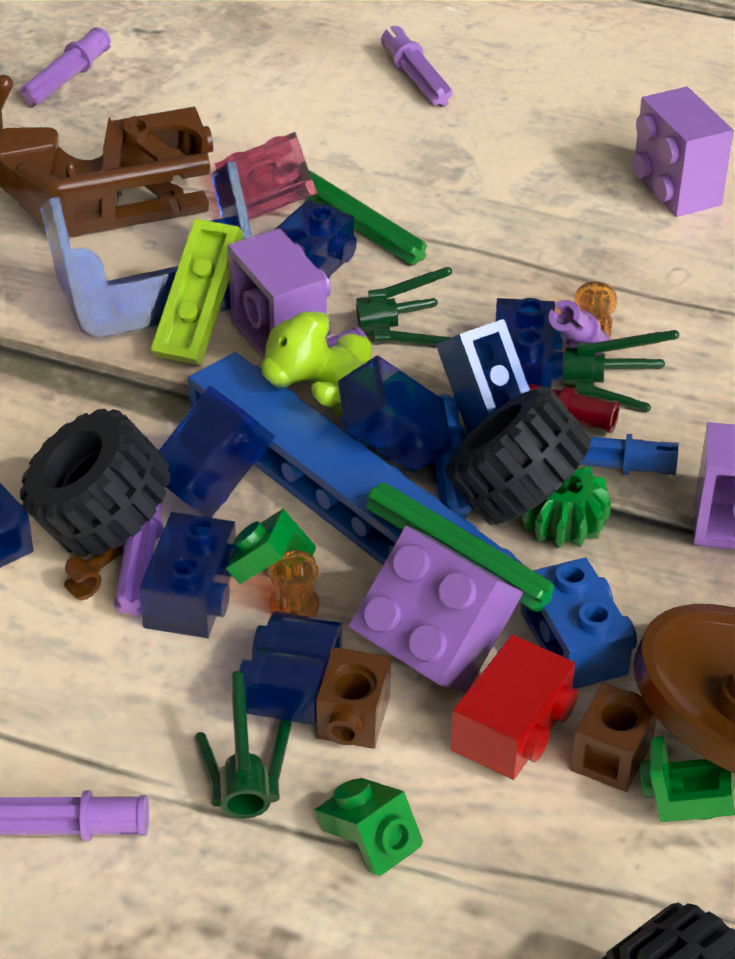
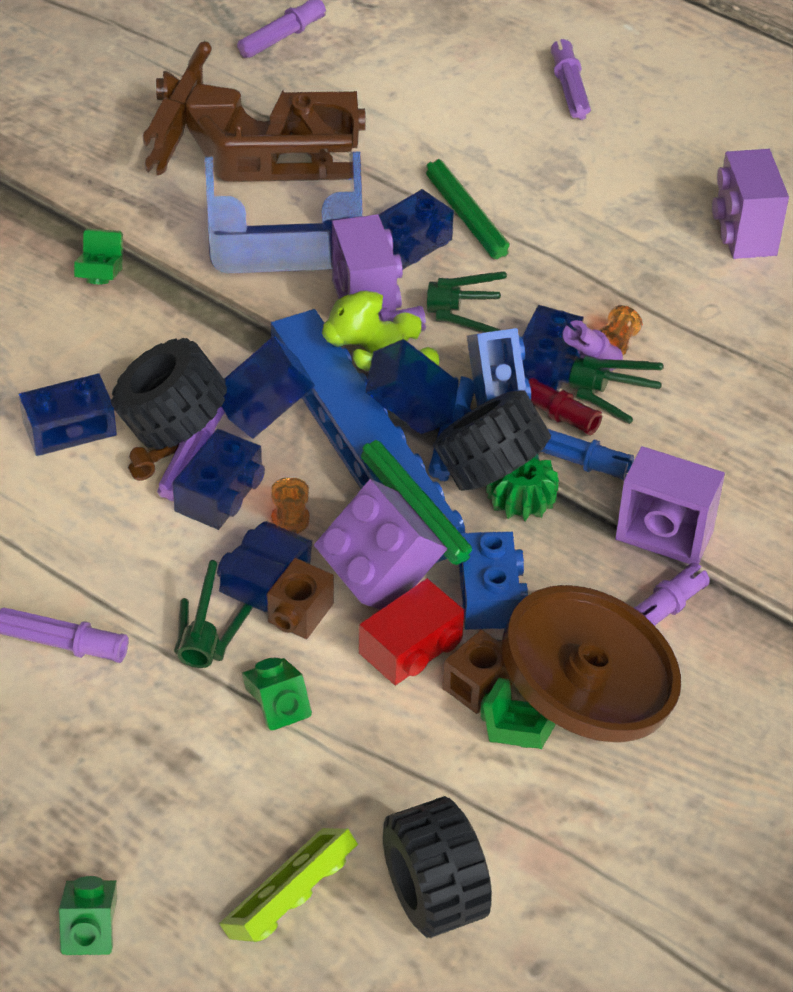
camera: 15 degrees right, 5 degrees up
(196, 293) = (303, 253): lime plate -> none
(265, 544) = (274, 467): green bracket -> none
(272, 174) = (402, 160): clear pink plate -> none

